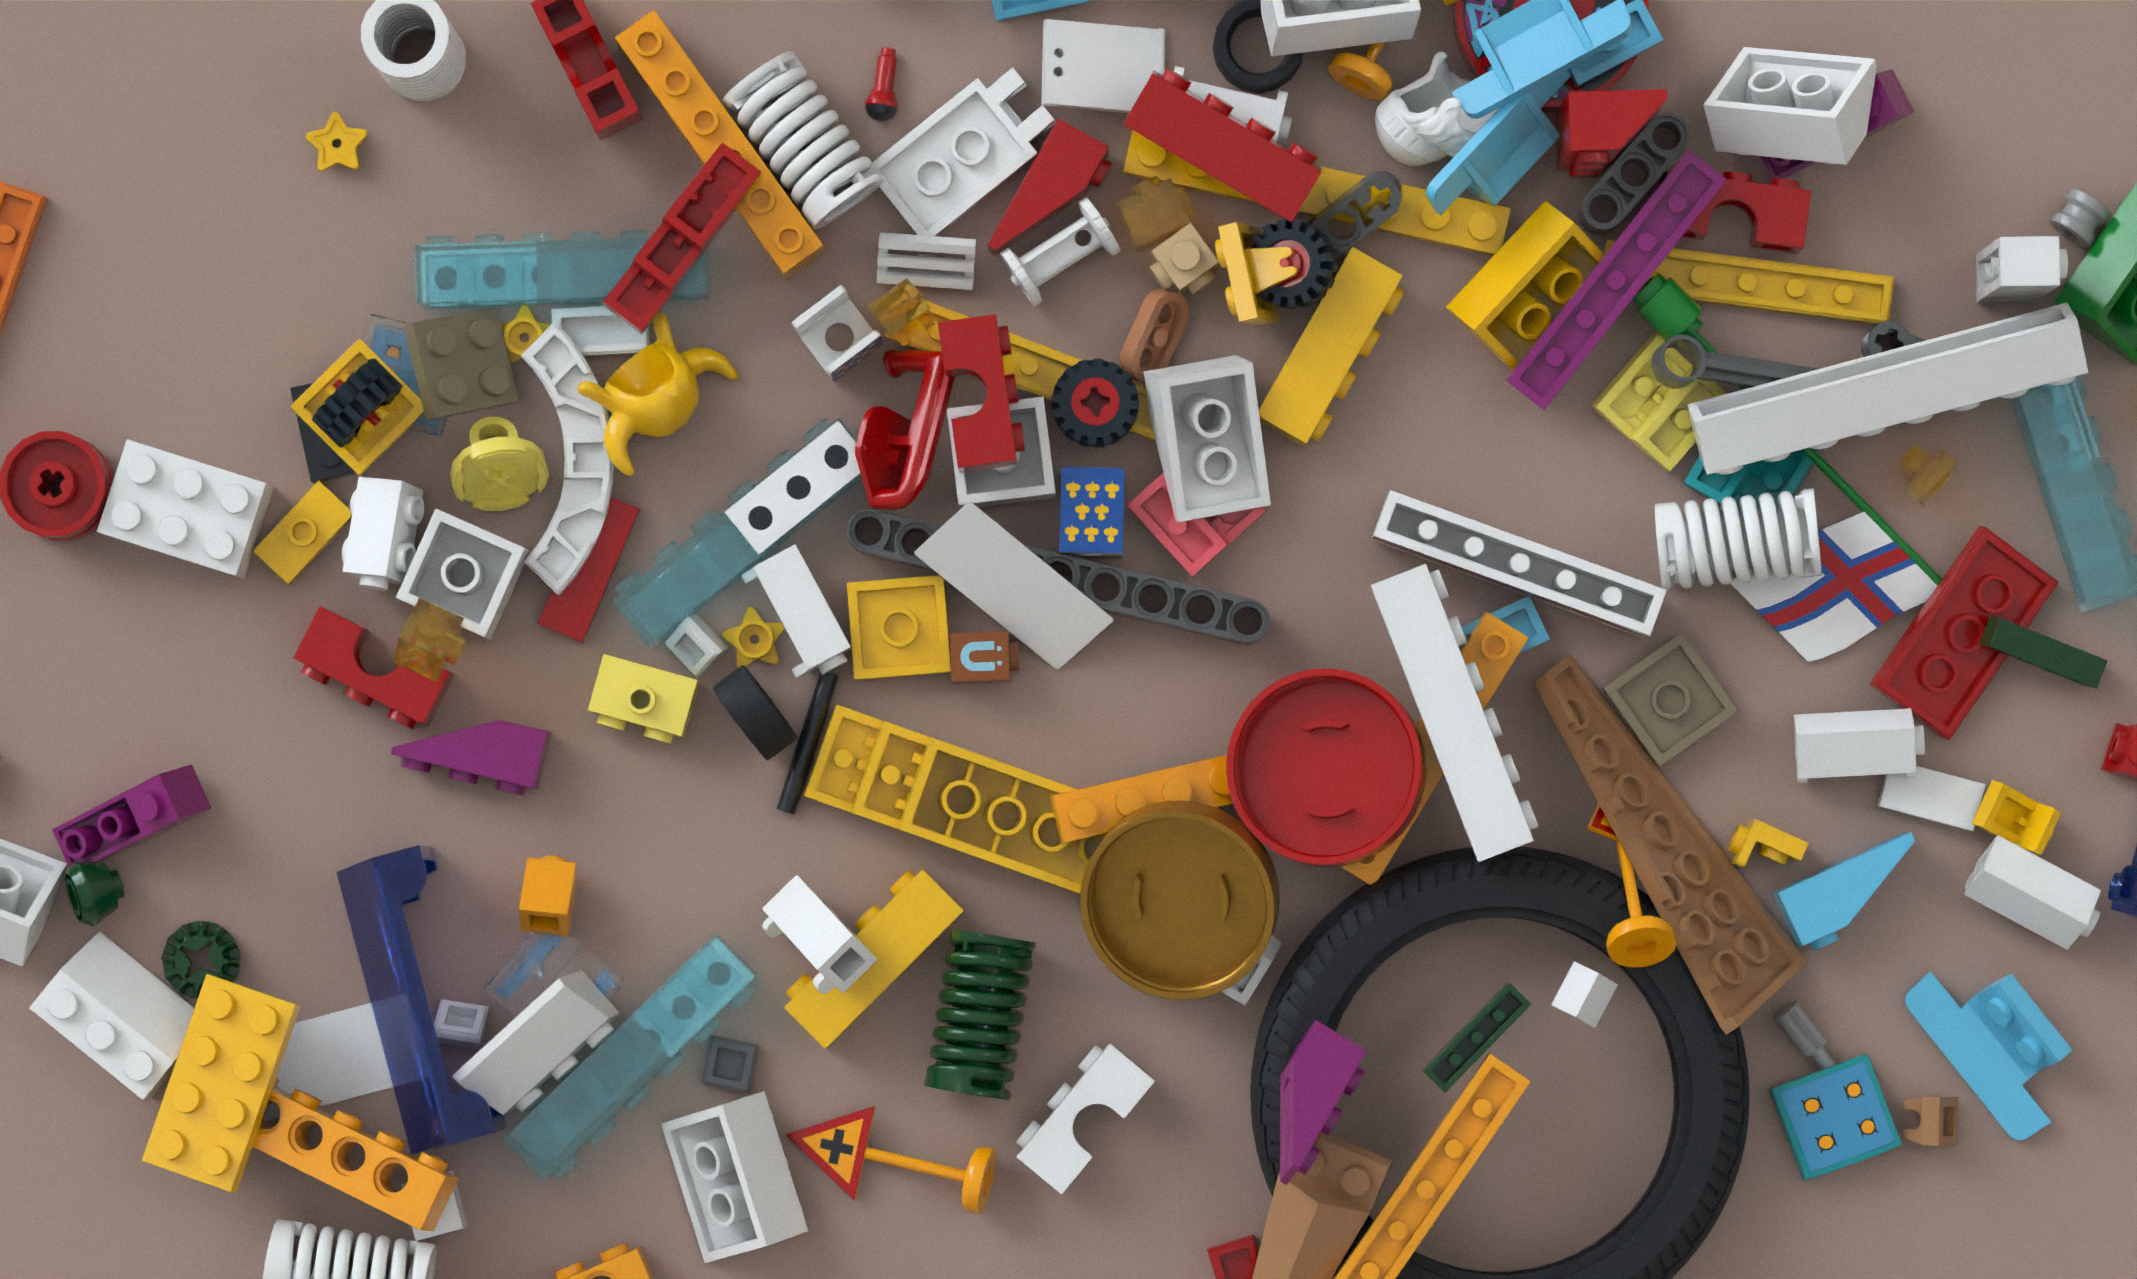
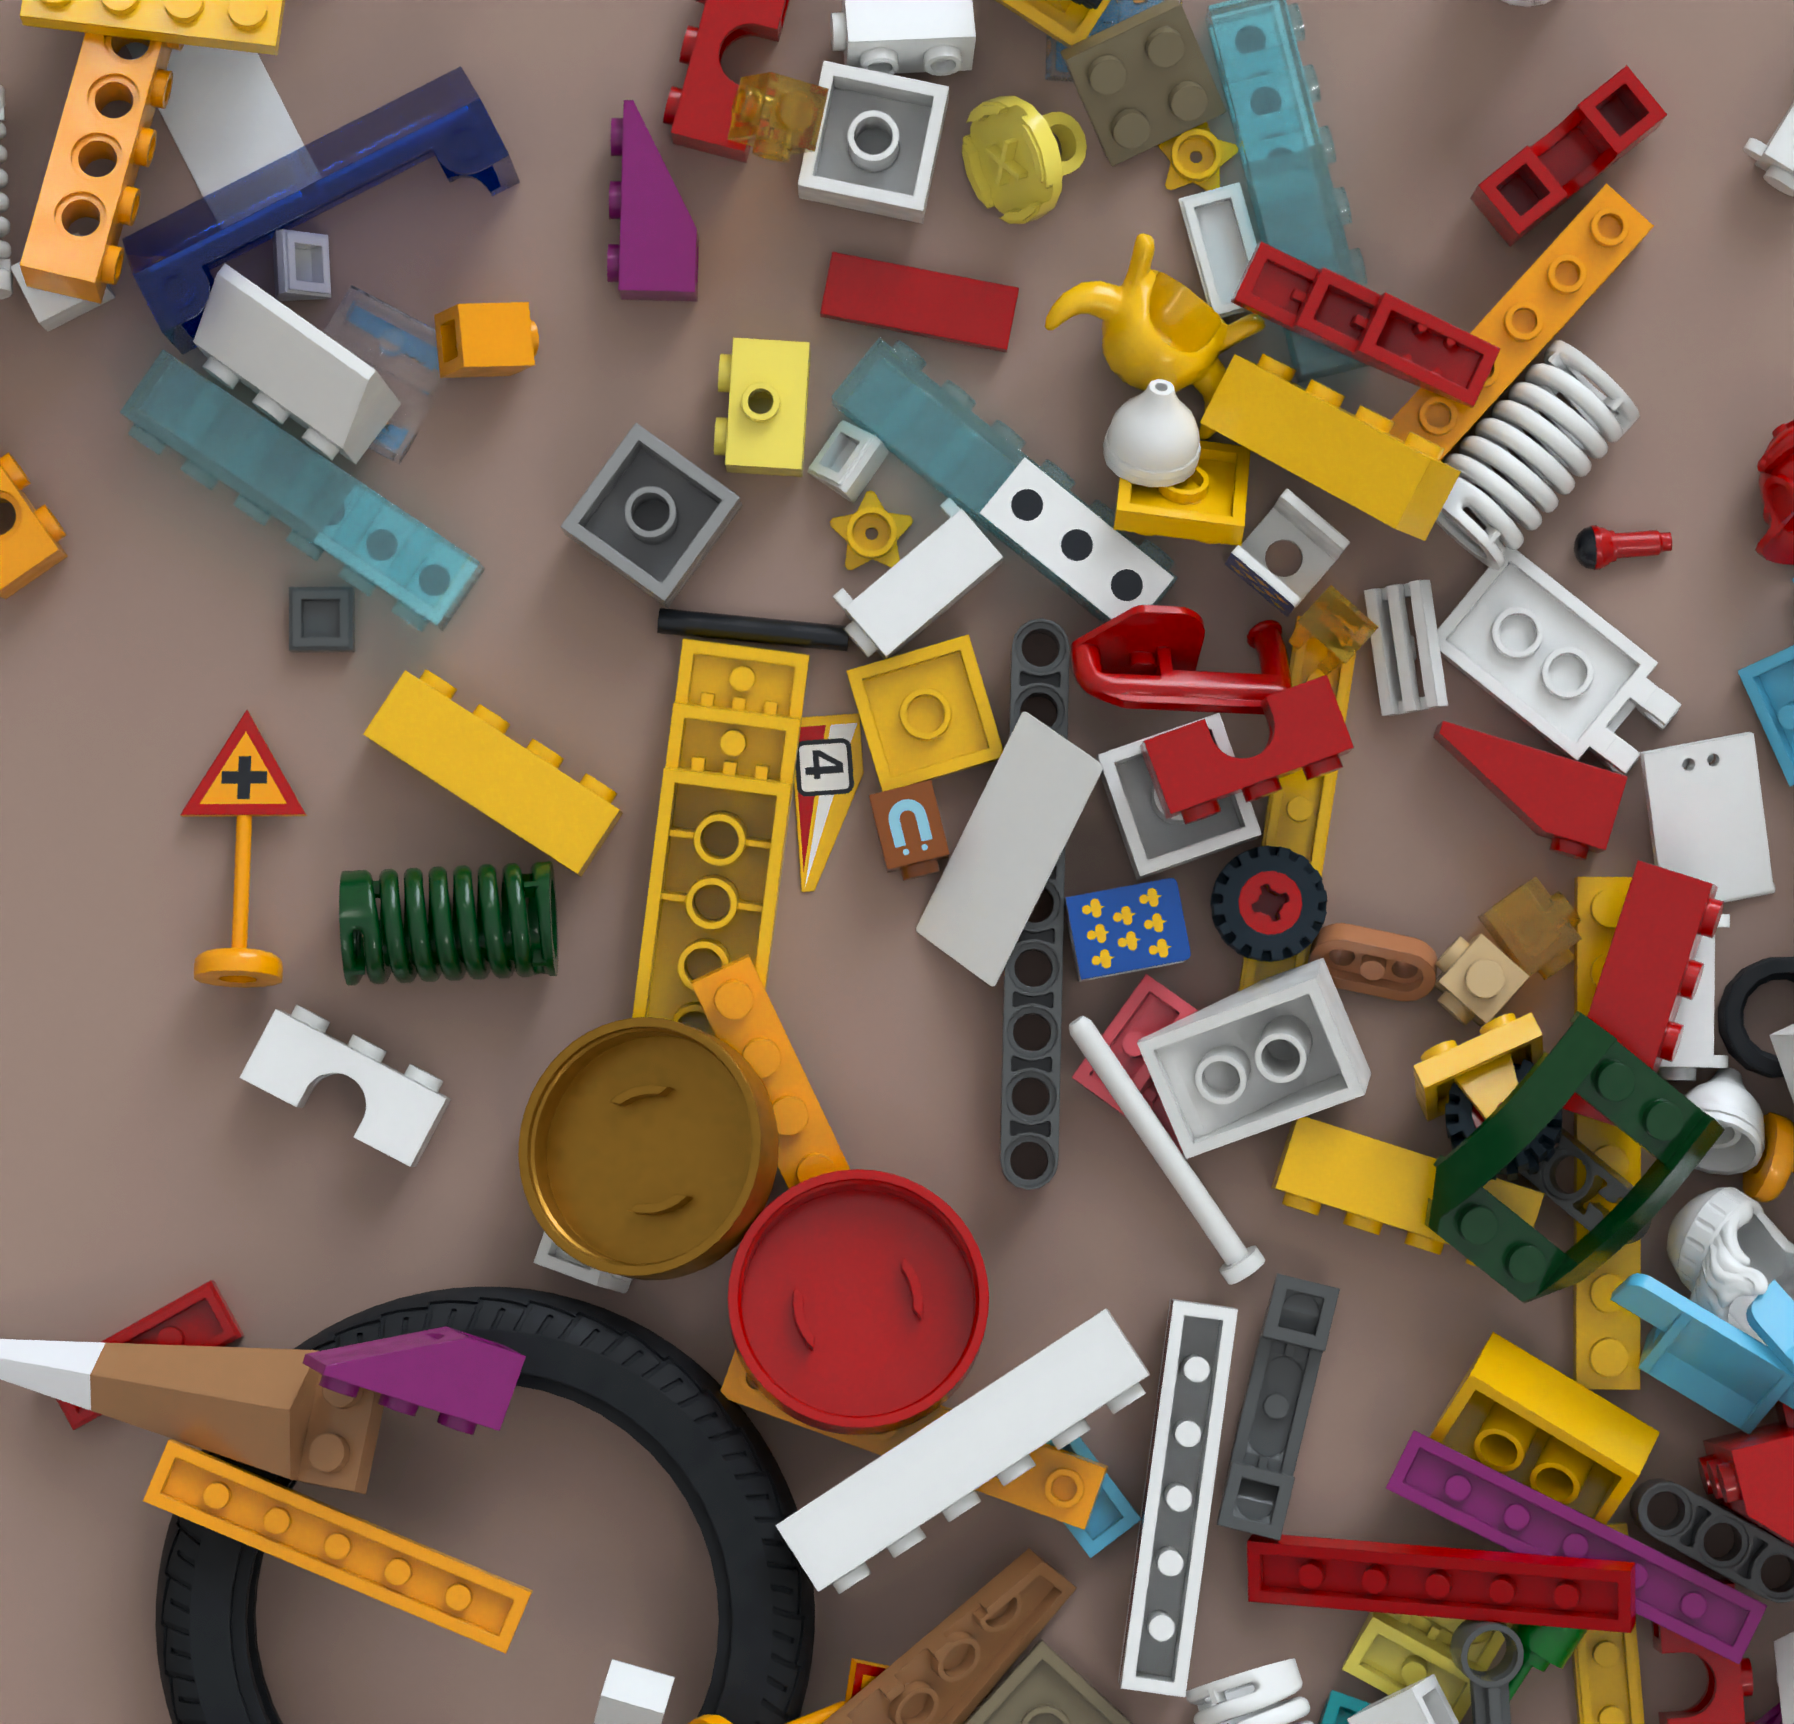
camera: 80 degrees right, 0 degrees up
(586, 464) = (1041, 271): white tile -> none
(707, 799) = (651, 515): none -> light grey brick
(731, 413) = (1153, 438): none -> white helmet
(734, 1177) = (177, 656): white slope -> none
(755, 712) = (775, 552): black tyre -> none
(767, 283) = (1331, 447): none -> yellow brick
(772, 400) = (1202, 508): none -> yellow plate
(818, 935) = (504, 694): white brick -> none
(936, 714) = (824, 784): none -> sticker
(1059, 252) = (1454, 816): white hose -> none
(1293, 170) = (1621, 1090): none -> dark green wedge
(1329, 108) = (1741, 1117): none -> white helmet
(1353, 482) = (1238, 1259): none -> white bar
(1466, 477) = (1276, 1406): none -> dark grey slope
(1476, 1037) = (548, 1570): dark green piece -> none
(1621, 384) = (1442, 1582): none -> red plate

